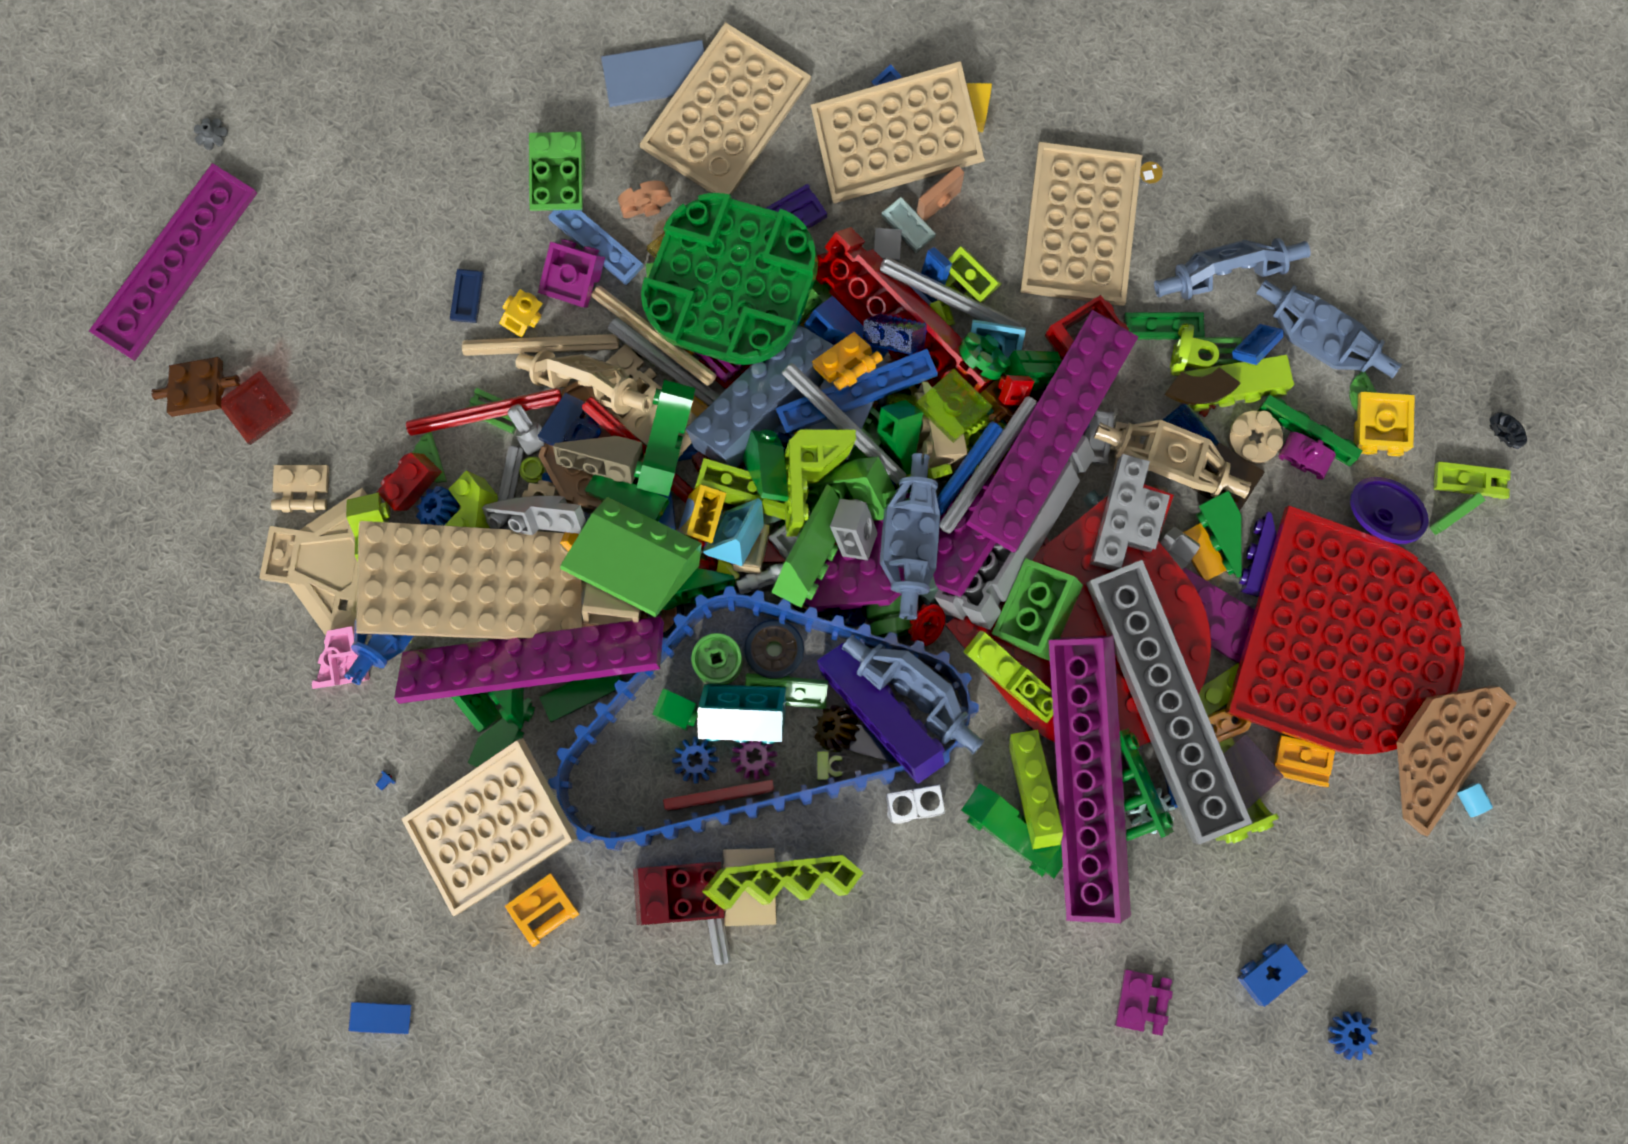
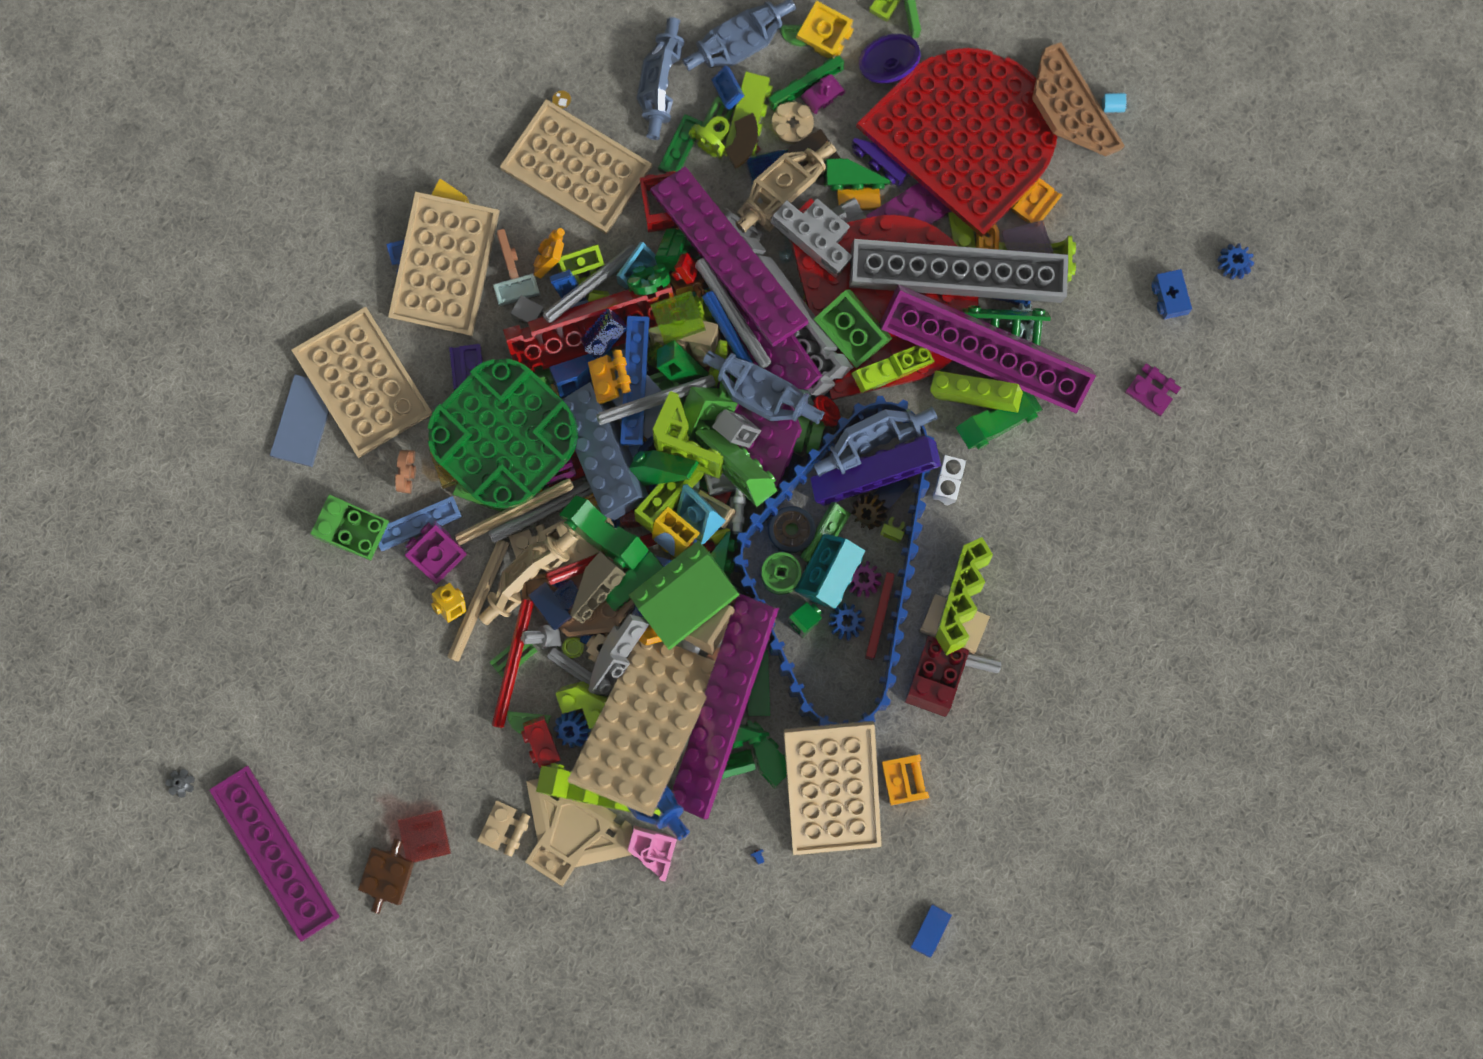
camera: 70 degrees left, 0 degrees up
(466, 296) = (412, 639): dark blue tile -> none
(964, 237) = (551, 251): none -> light orange plate

